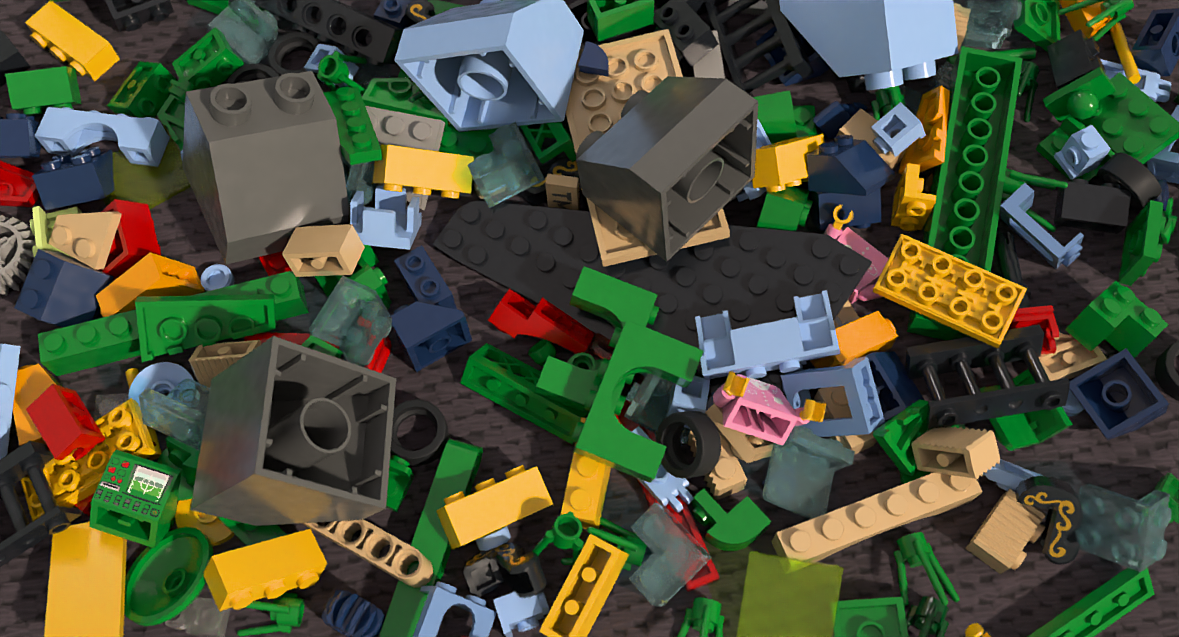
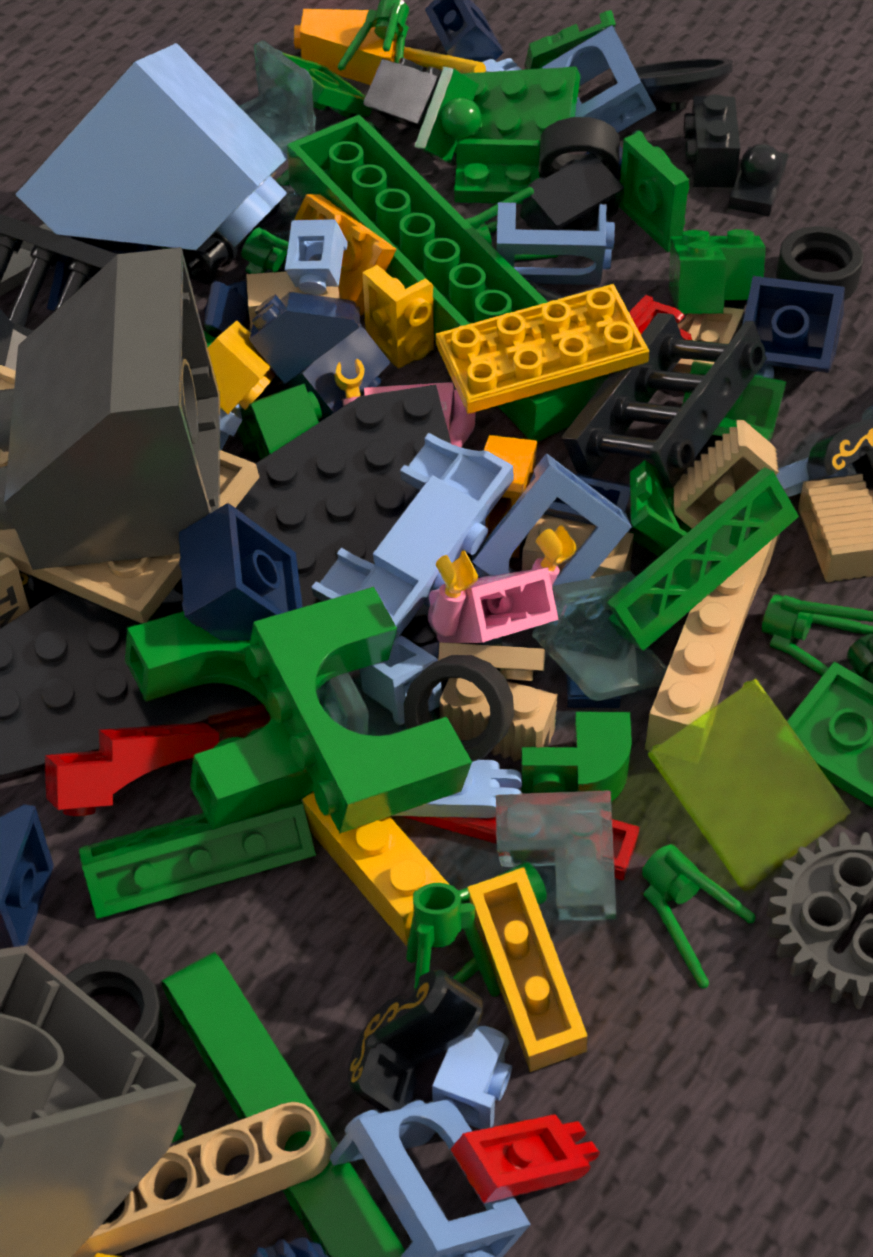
camera: 50 degrees left, 15 degrees down
(493, 505) = (309, 990): yellow brick -> none
(493, 539) = (346, 1034): light blue tile -> none
(541, 350) = (163, 792): green hinge -> none
(653, 287) = (235, 574): none -> dark blue slope
(888, 485) = (701, 560): none -> green fence
(1082, 152) = (509, 157): light blue brick -> none

